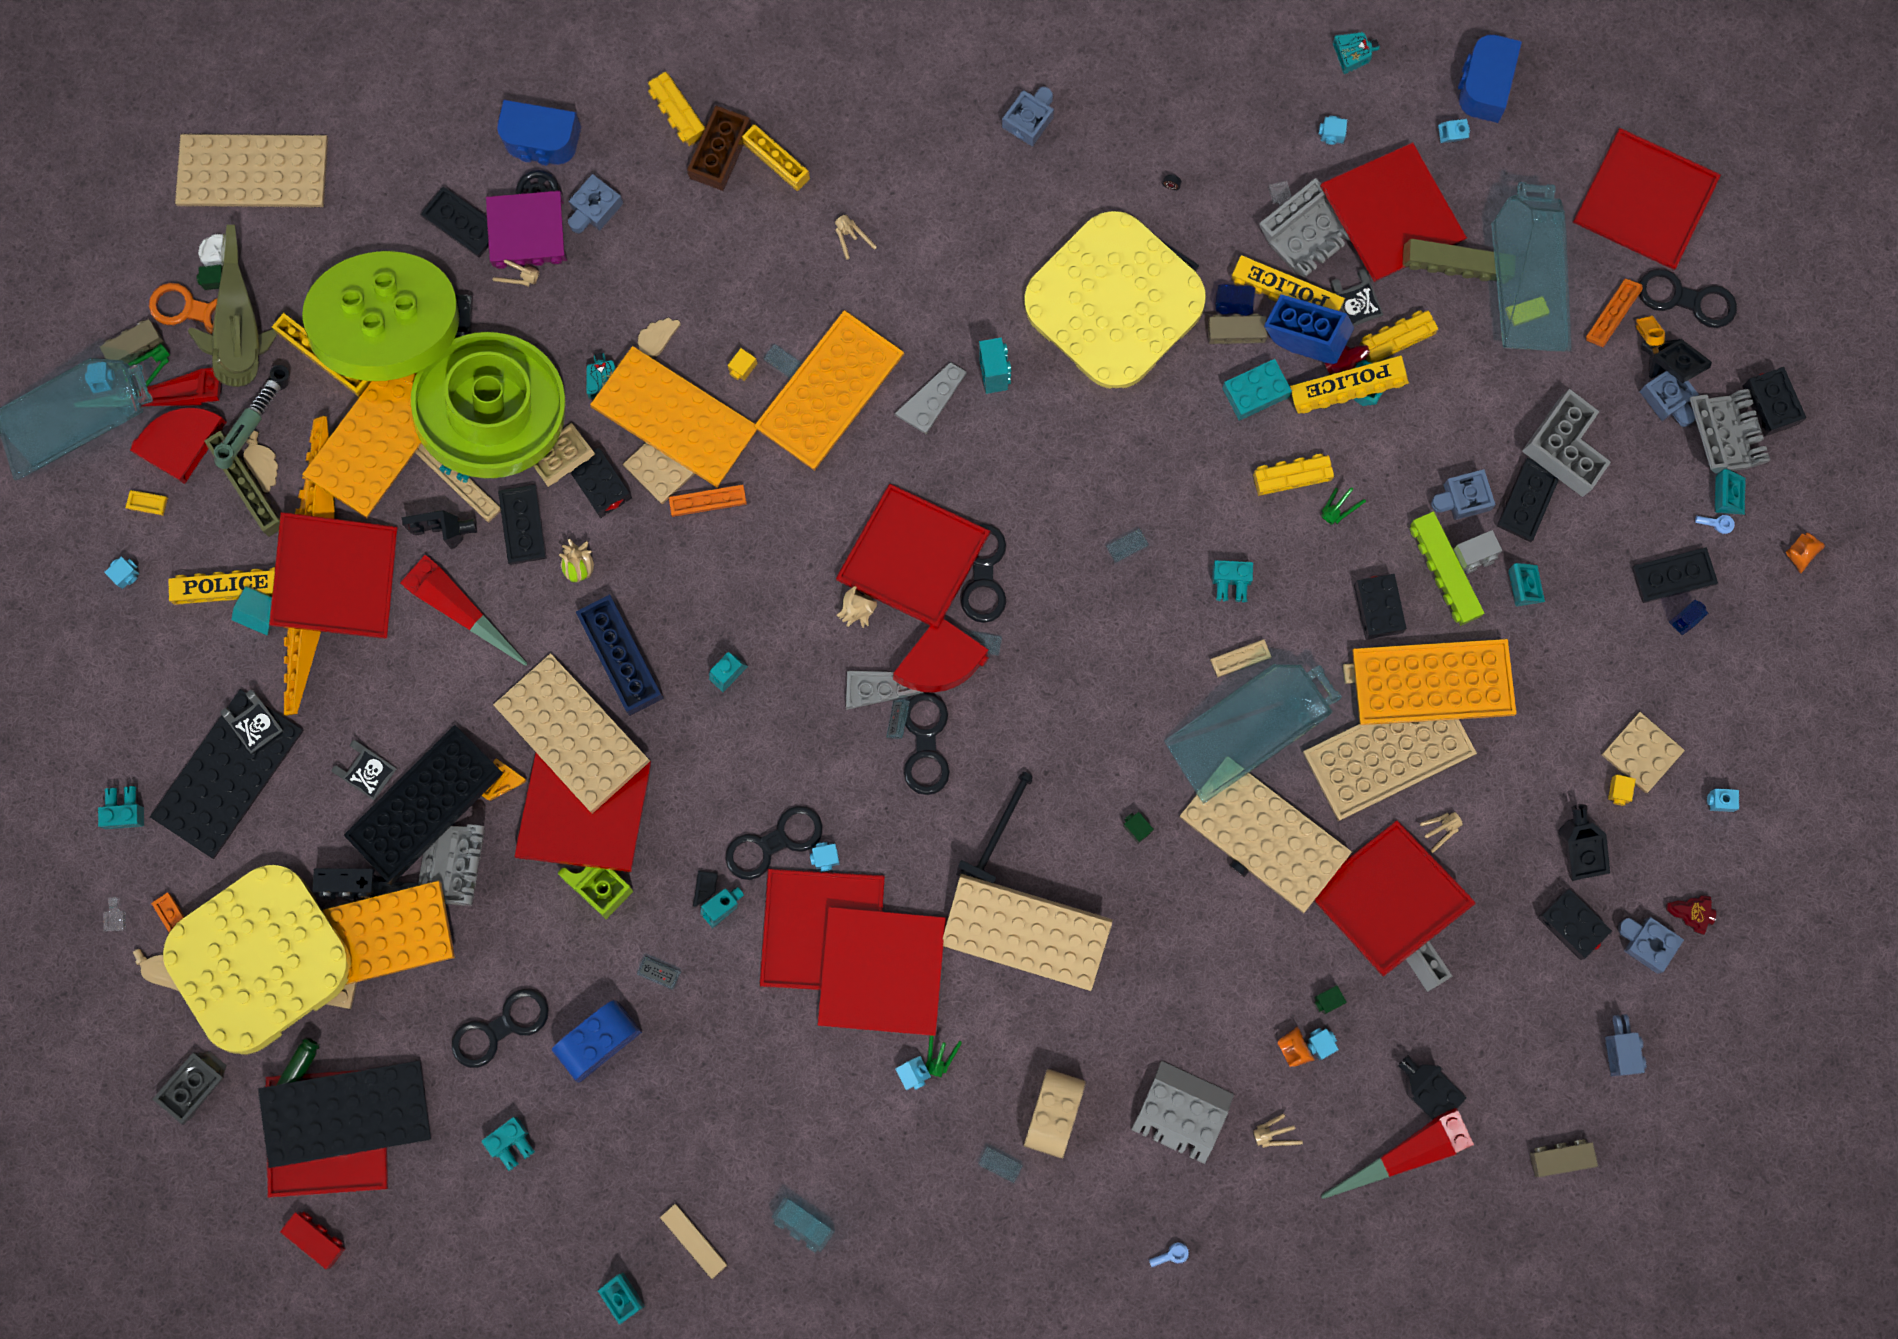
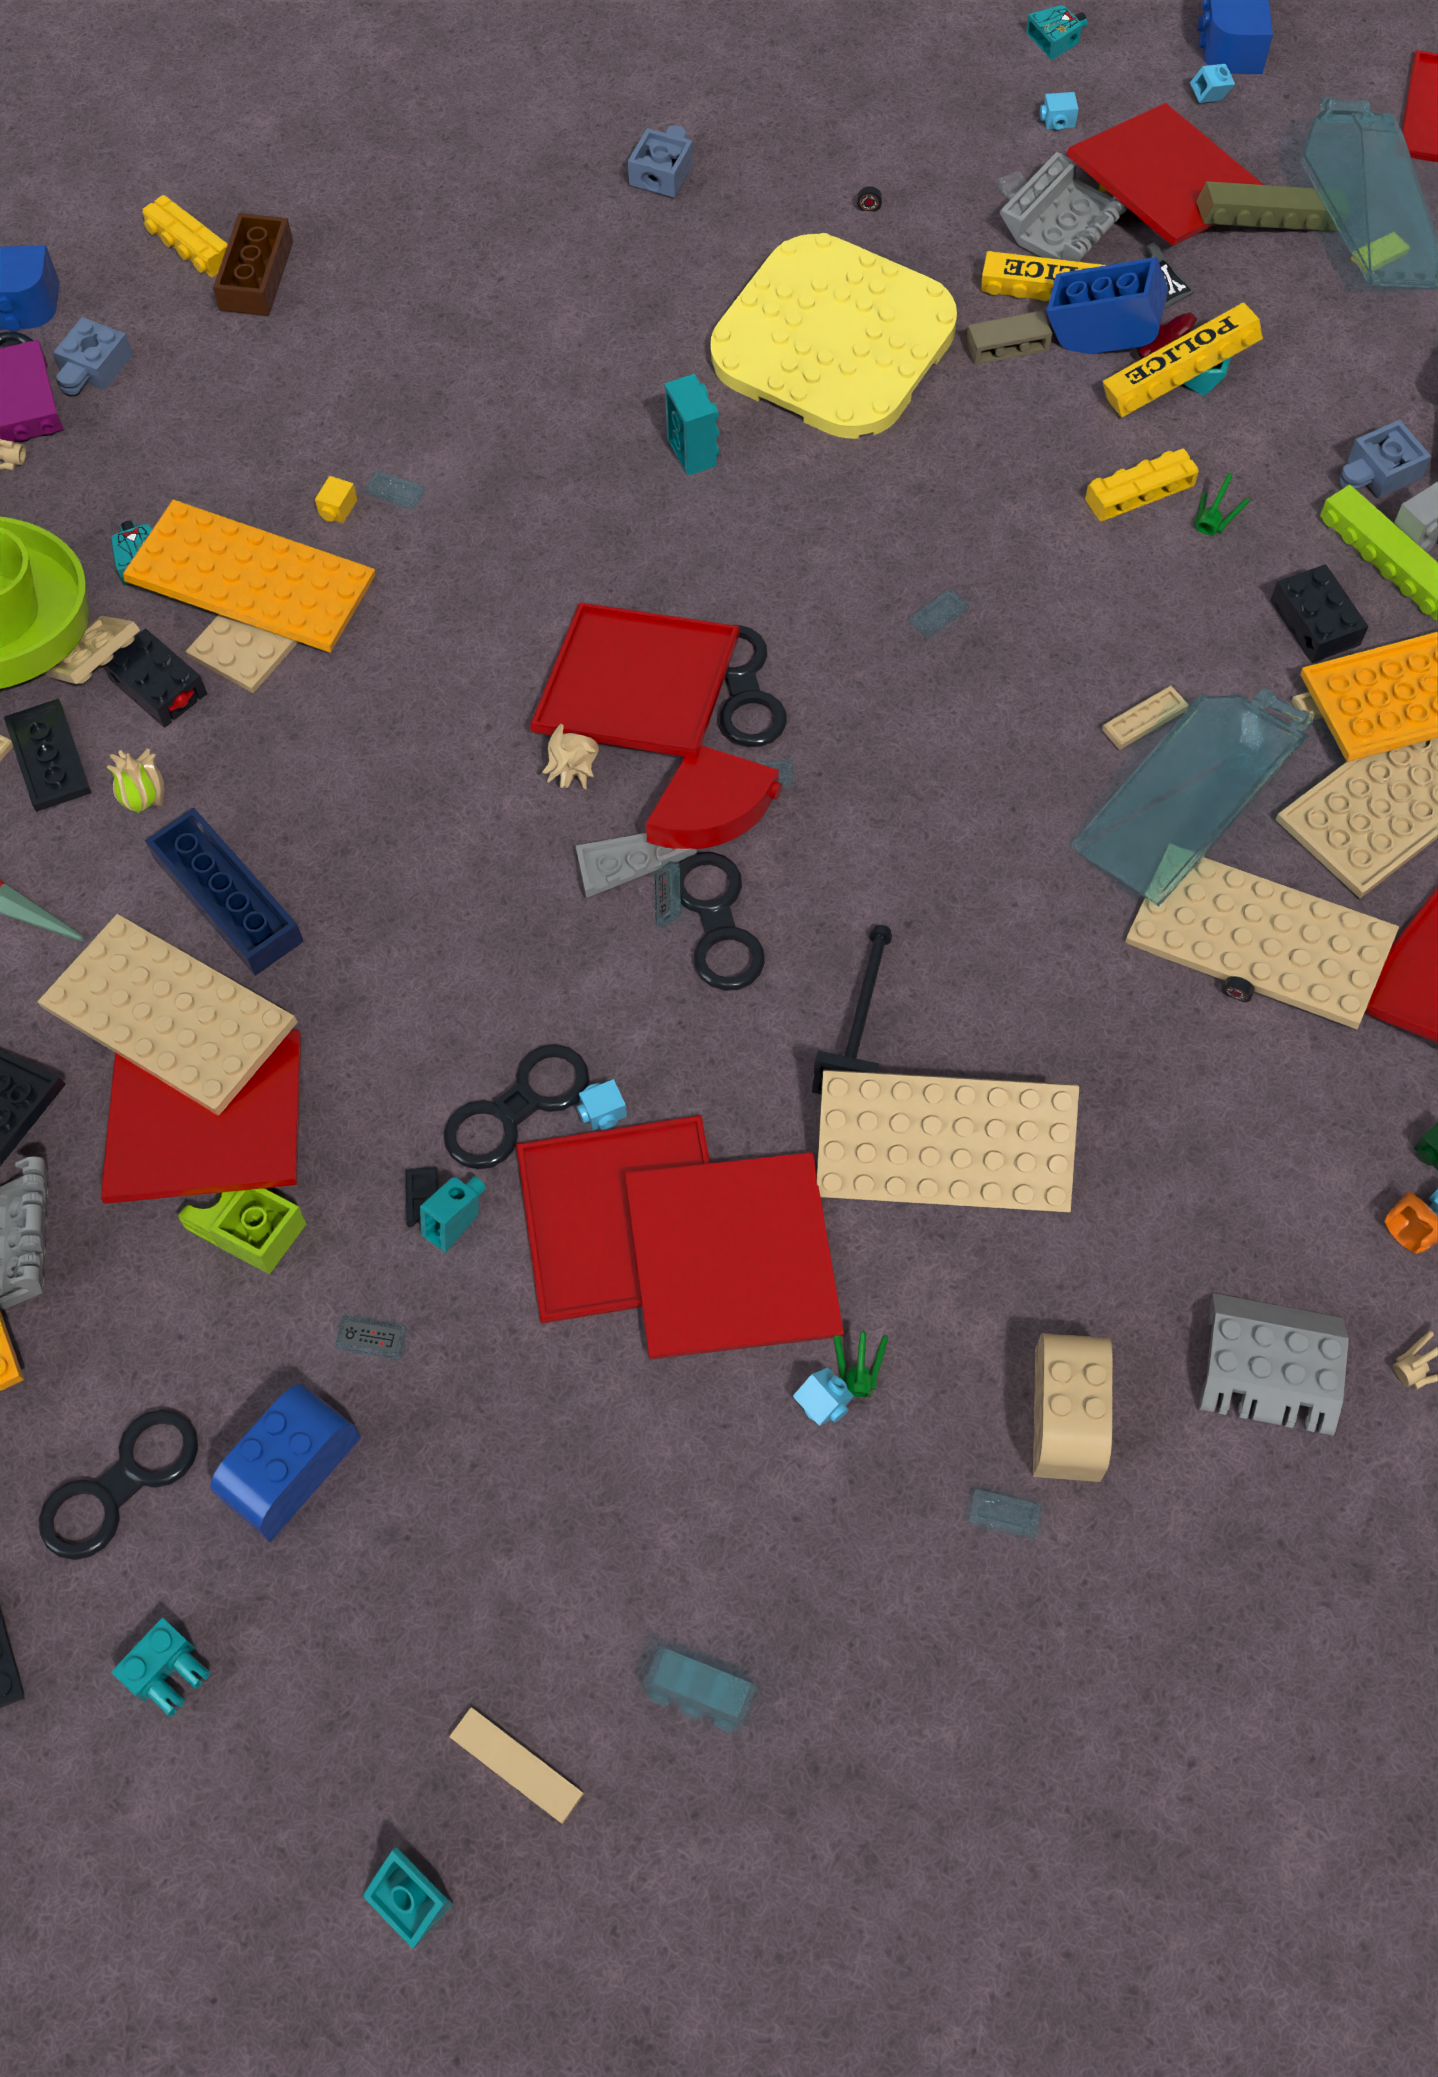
camera: 15 degrees left, 15 degrees down
(505, 783) = (67, 1109): light orange wing -> none
(656, 336) = (210, 490): tan animal -> none
(707, 500) = (319, 672): orange plate -> none
(726, 671) = (395, 875): teal torso -> none
(776, 157) = (333, 260): yellow brick -> none
(829, 390) = (465, 510): light orange plate -> none
(846, 226) = (446, 323): tan plant -> none
(929, 402) = (612, 496): light grey wing -> none
(1137, 827) = (1069, 964): dark green brick -> none
(1177, 1253) = (1338, 1589): light blue plate -> none
(1232, 573) = (1097, 614): teal brick -> none
(1235, 299) = (996, 302): clear blue brick -> none
(1256, 389) = (1058, 396): teal brick -> none
(1400, 336) = (1246, 287): yellow brick -> none

